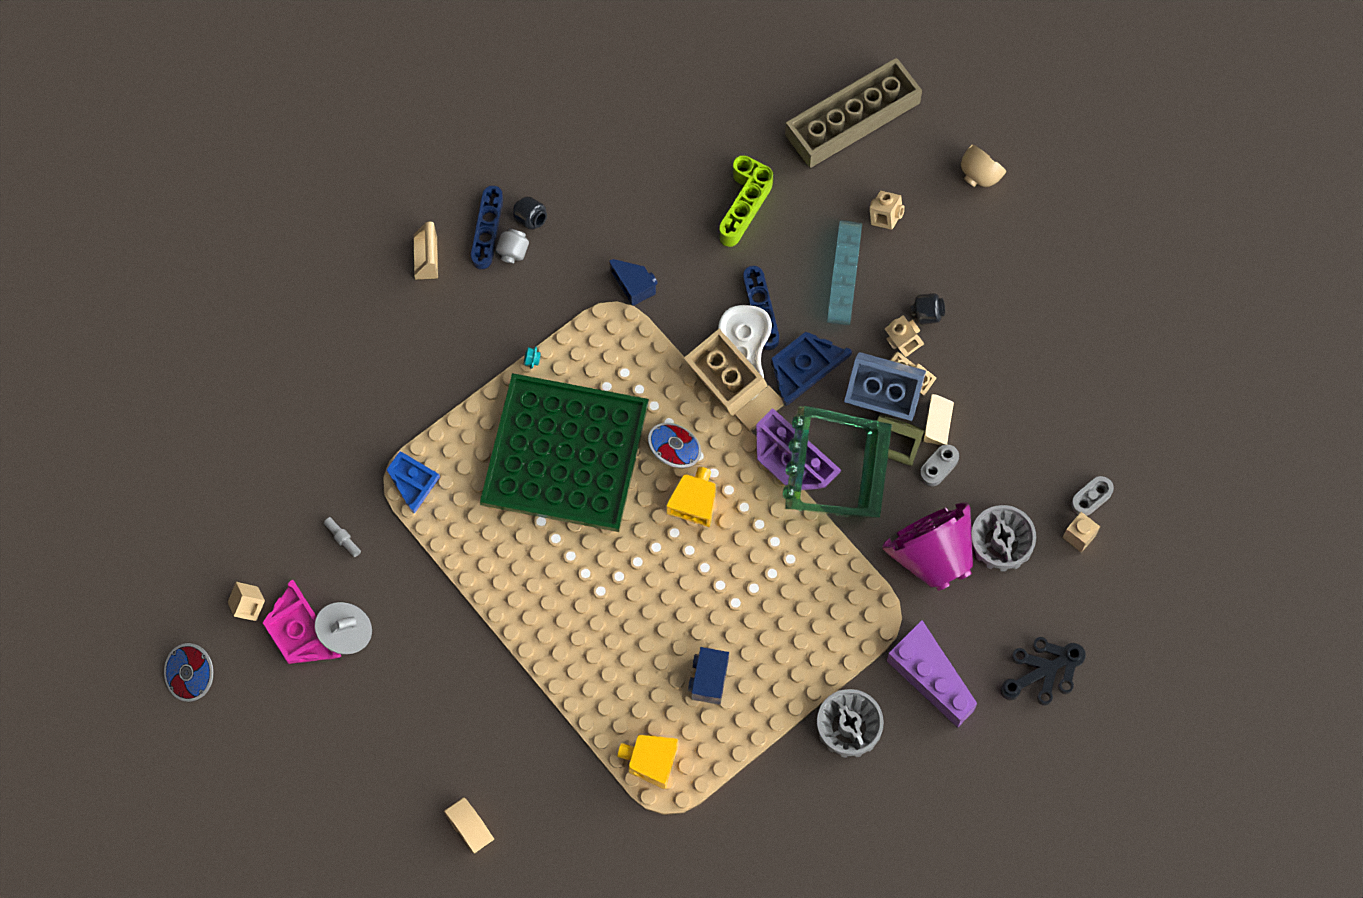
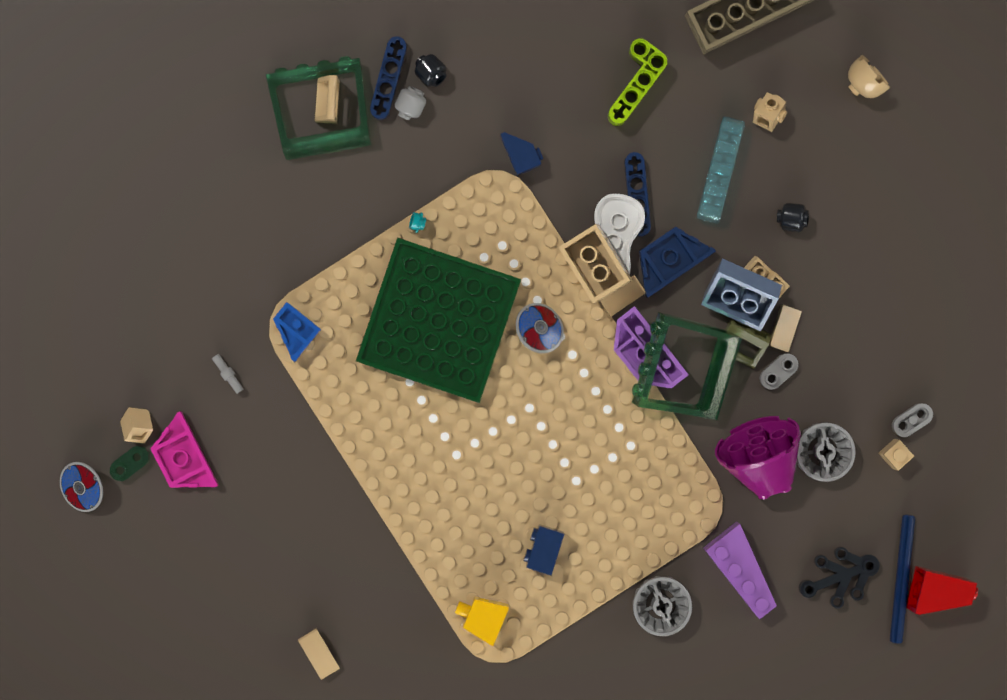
camera: 10 degrees right, 20 degrees up
(242, 645) = (129, 464): none -> clear green plate
(343, 628) = (222, 461): light grey shield -> none
(429, 292) = (328, 141): none -> clear green windscreen
(694, 498) = (552, 380): yellow torso -> none
(904, 335) = (766, 243): tan brick -> none
(1114, 669) = (902, 579): none -> dark blue axle
(1156, 666) = (939, 591): none -> red slope

